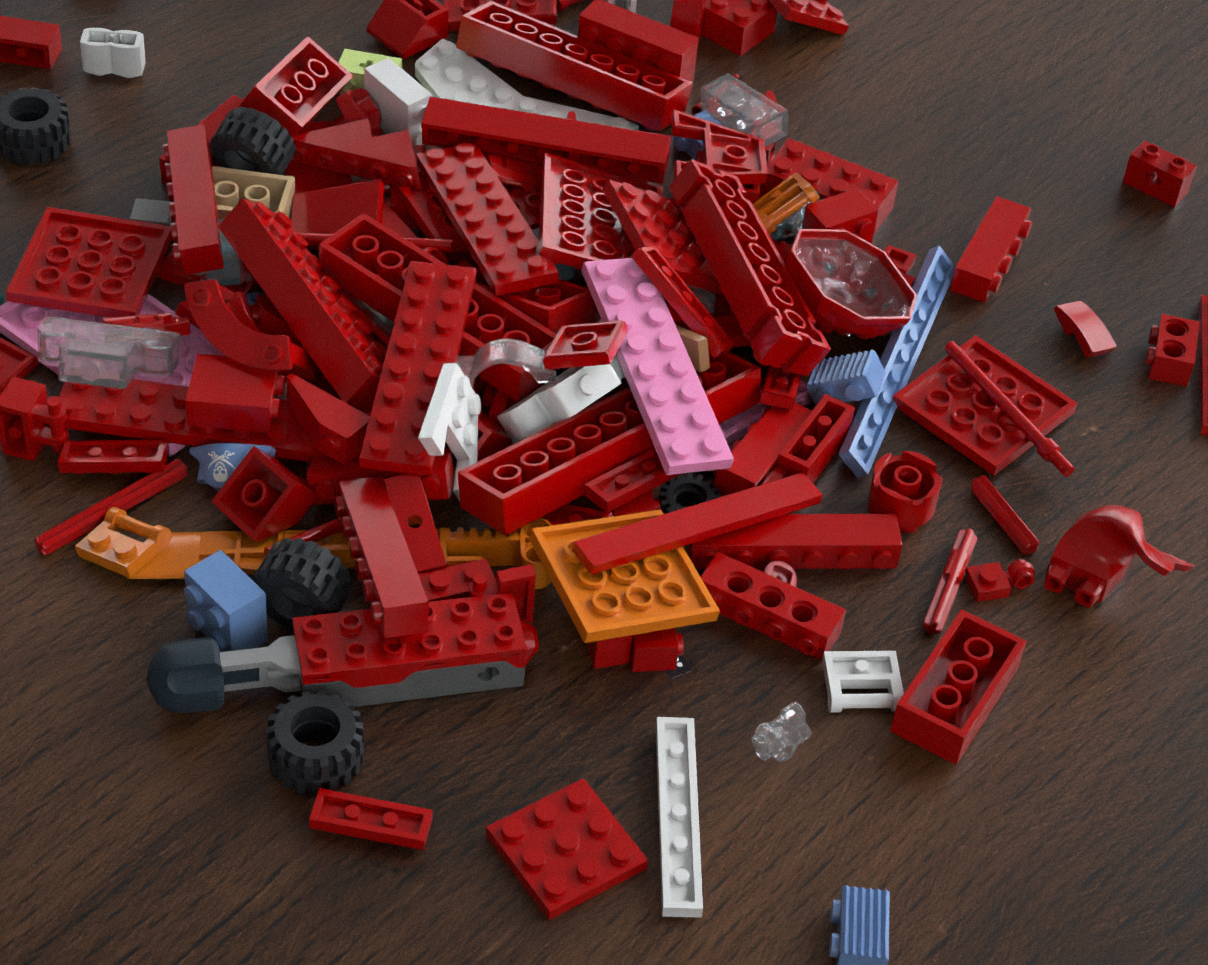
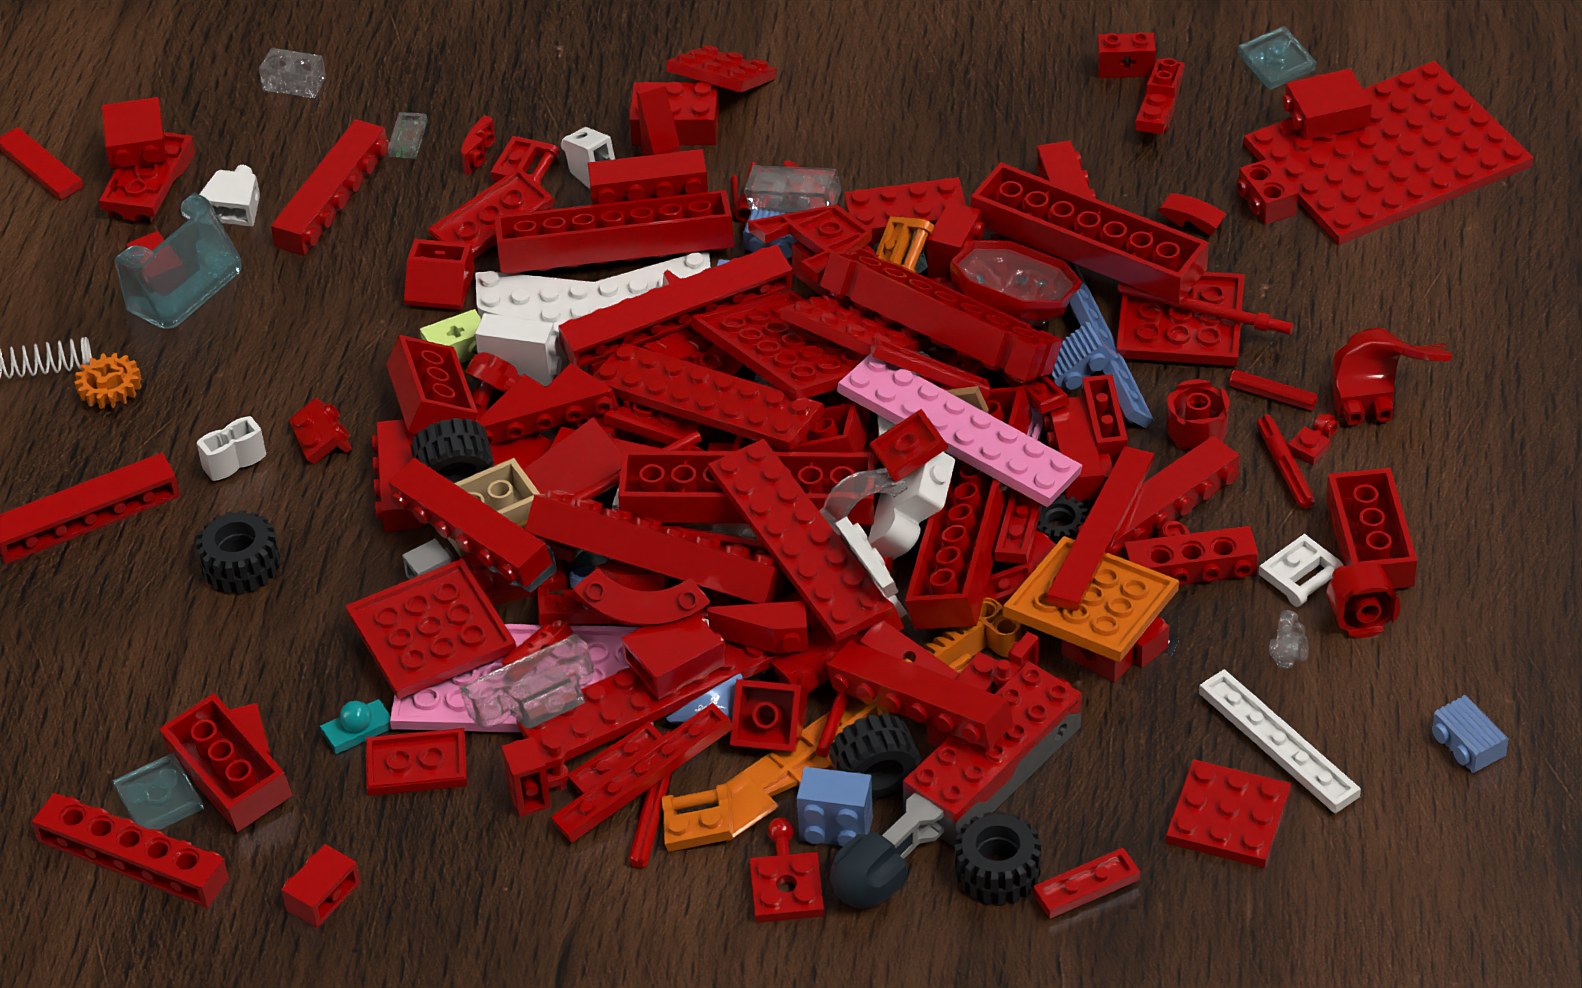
camera: 30 degrees left, 0 degrees up
(116, 475) = (642, 772): none -> red plate
(131, 626) = (772, 871): none -> red plate
(197, 79) = (319, 430): none -> red bracket
(883, 740) = (1362, 599): none -> red brick
(958, 285) = (1091, 233): none -> red brick
(1157, 224) = (1160, 96): none -> red slope

